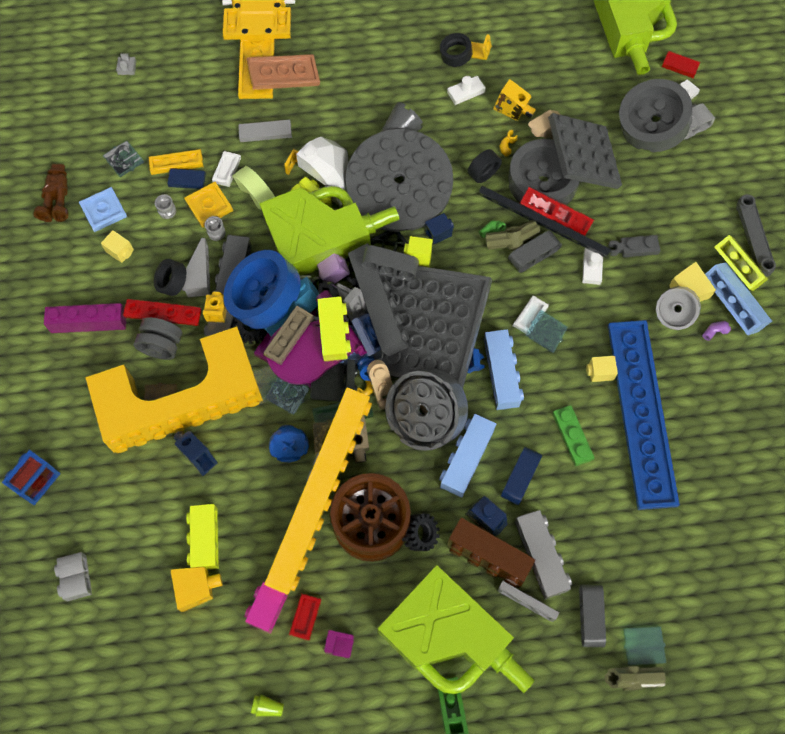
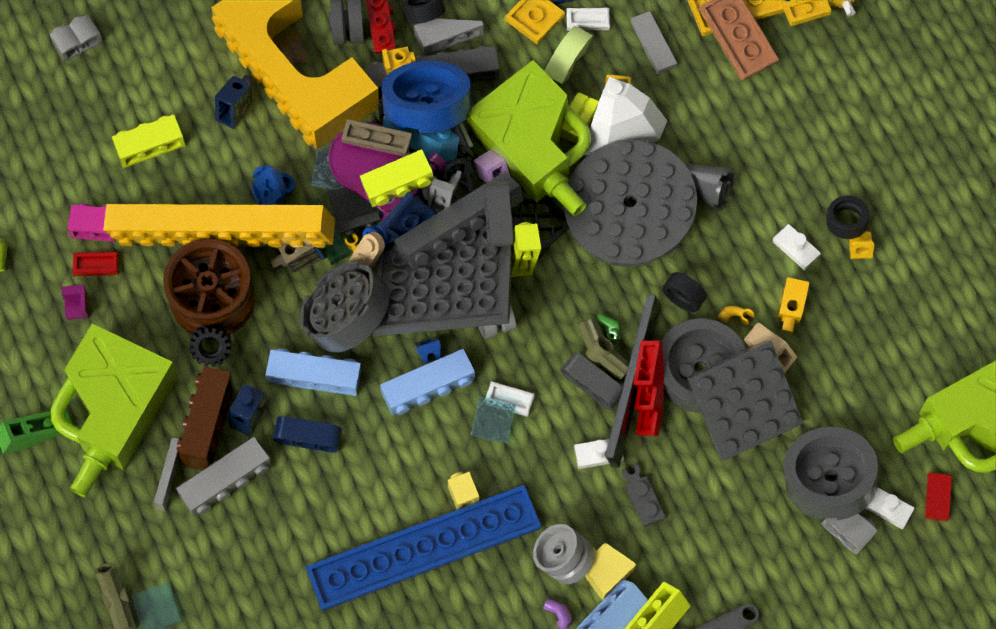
camera: 70 degrees right, 0 degrees up
(193, 586) = (95, 148): yellow torso -> none
(215, 228) = (503, 32): light grey wheel -> none
(439, 228) = (585, 266): dark blue brick -> none
(573, 435) = (373, 480): bright green plate -> none
(592, 616) = (172, 544): dark grey beam -> none

